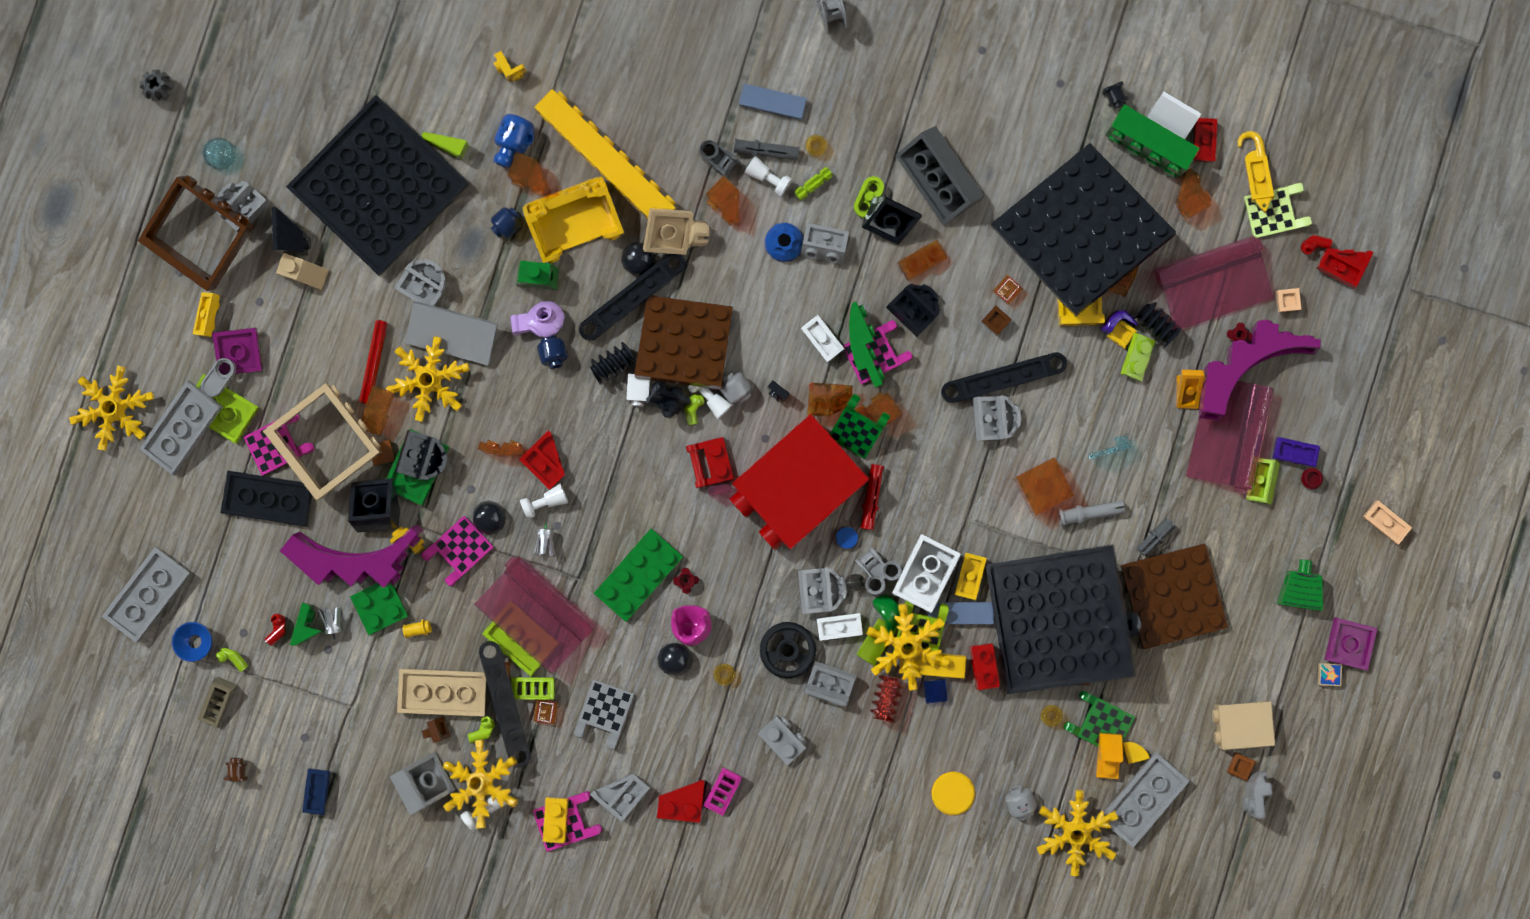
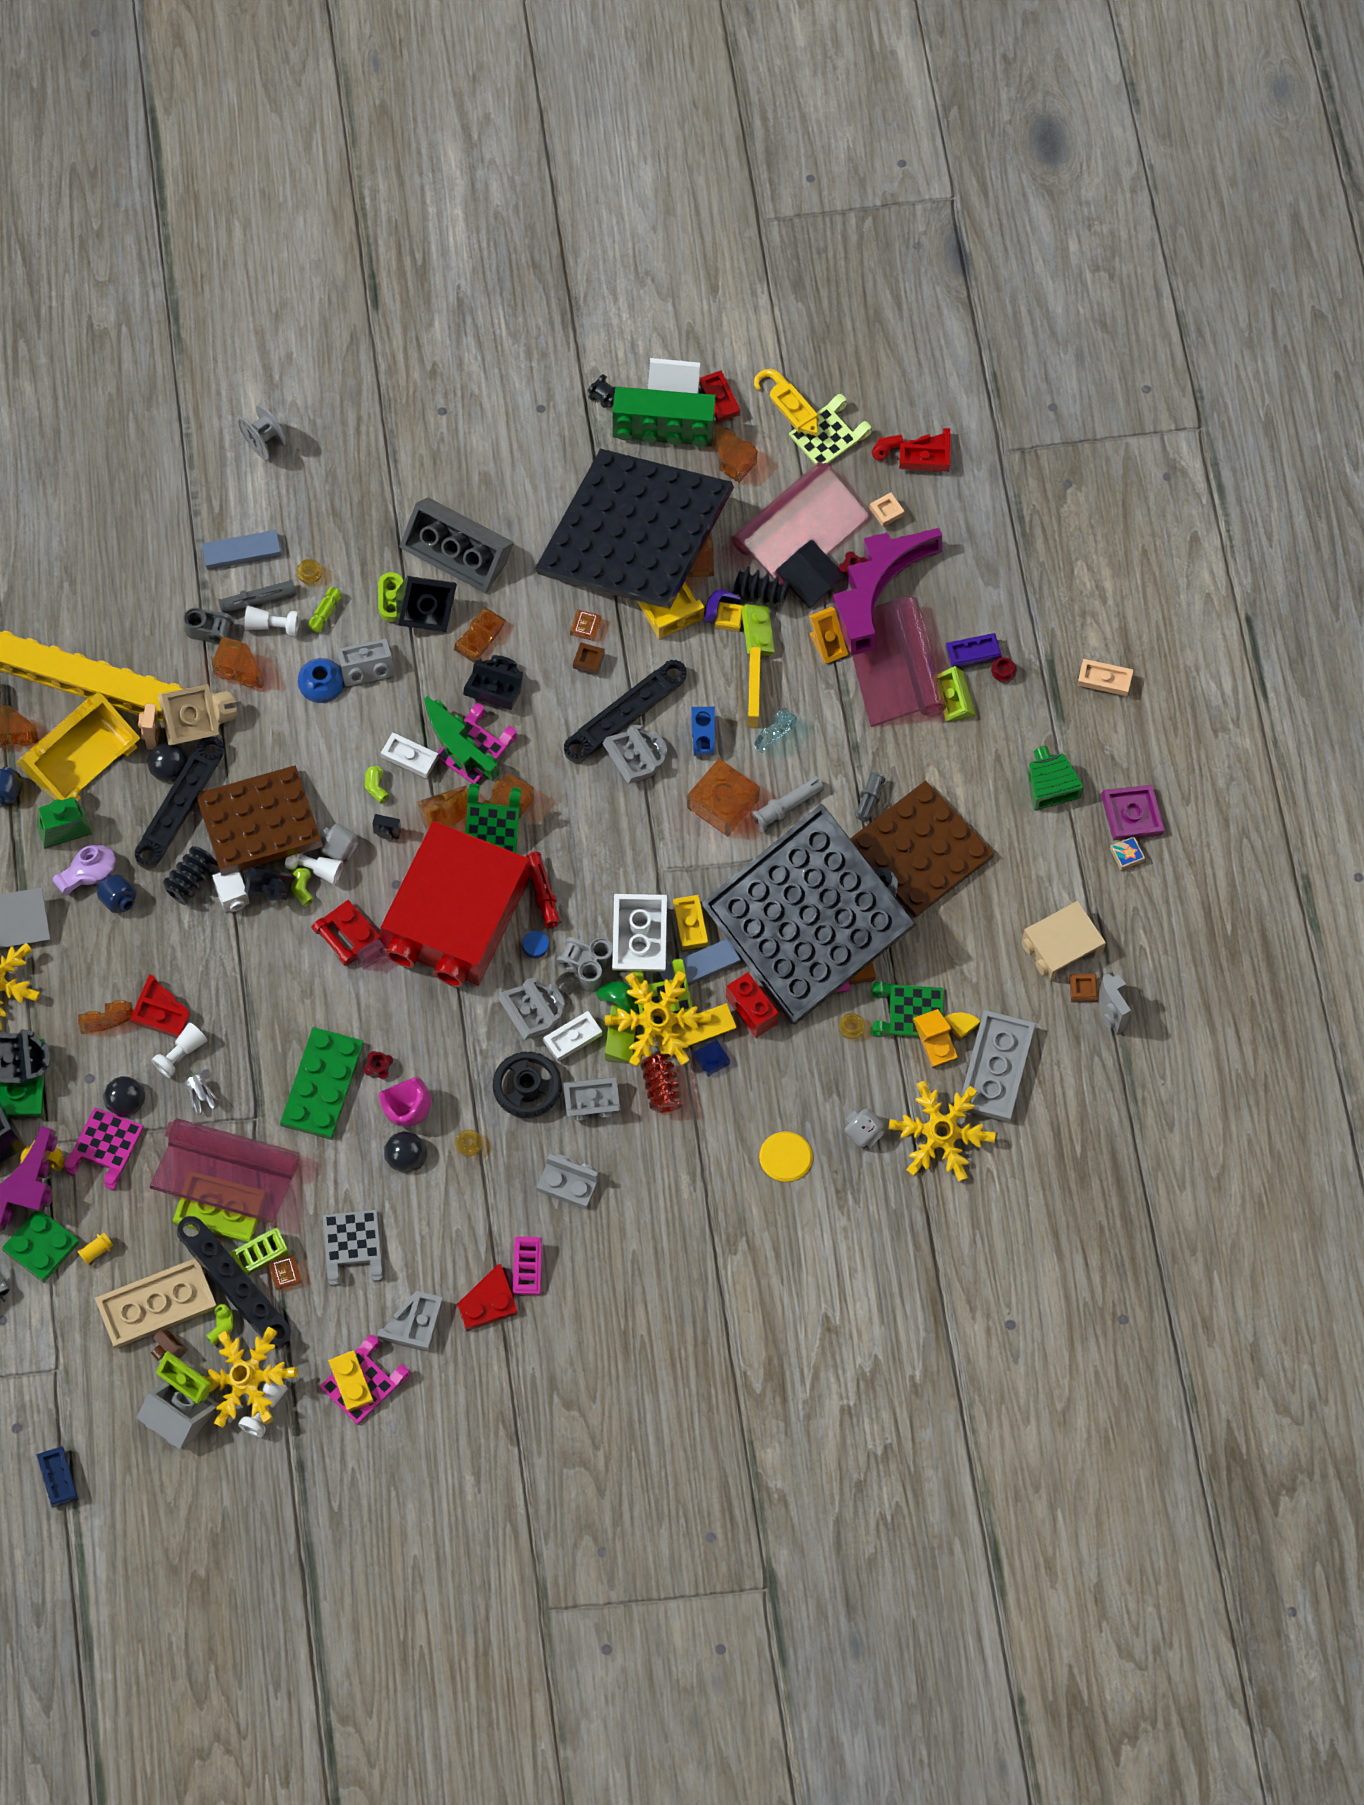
camera: 30 degrees left, 20 degrees down
(434, 764) = (183, 1378): none -> lime slope
(635, 227) = (150, 726): none -> light nougat plate
(784, 347) = (372, 784): none -> lime arm
(1054, 424) = (703, 730): none -> blue leg
(1111, 404) = (754, 686): none -> yellow tile
(1202, 327) = (810, 573): none -> black slope

